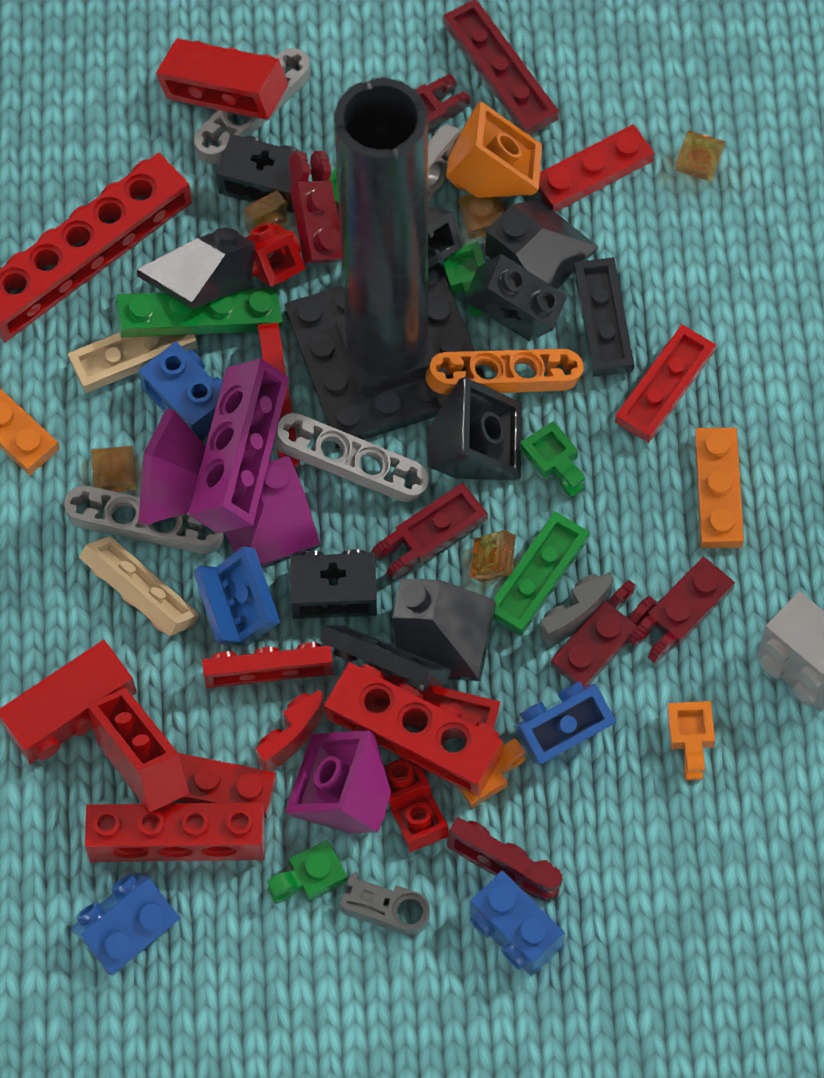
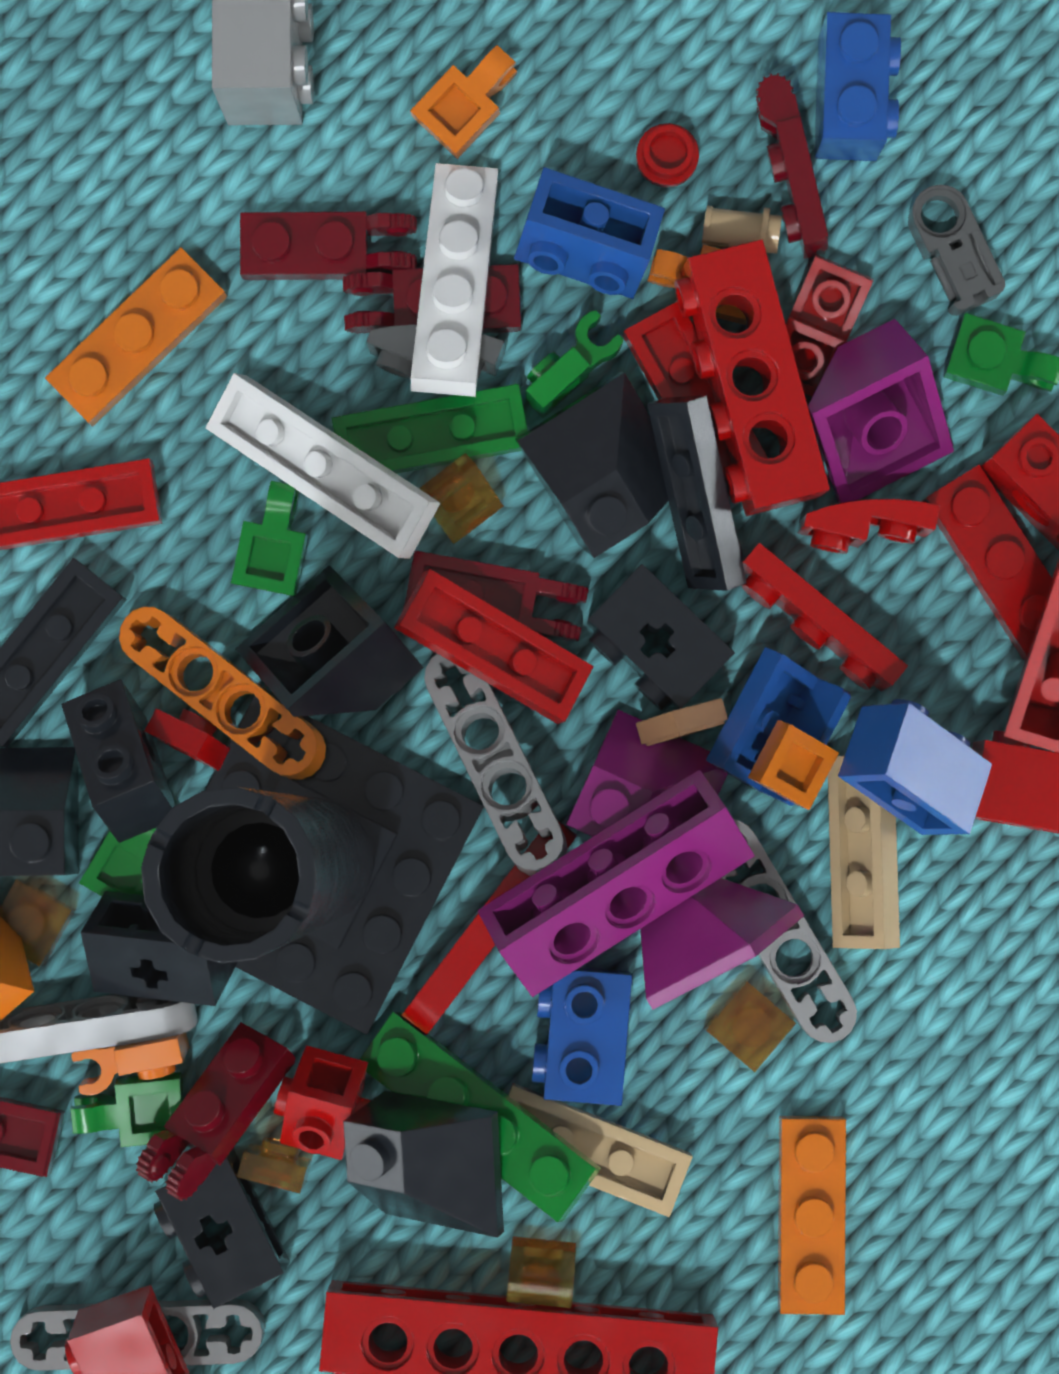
camera: 135 degrees left, 20 degrees up
(102, 281) = (541, 1272): none -> clear orange plate
(153, 623) = (915, 768): none -> brick
(212, 576) = (793, 764): none -> orange tile
(279, 560) = (682, 722): none -> medium nougat tile
(404, 500) = (493, 646): none -> red plate
(497, 807) = (735, 227): none -> tan pin
(498, 337) = (188, 735): none -> red plate
(508, 651) = (558, 377): none -> green plate
(568, 501) = (322, 466): none -> white plate
(571, 809) = (667, 155): none -> red plate
(602, 641) = (454, 280): none -> white plate

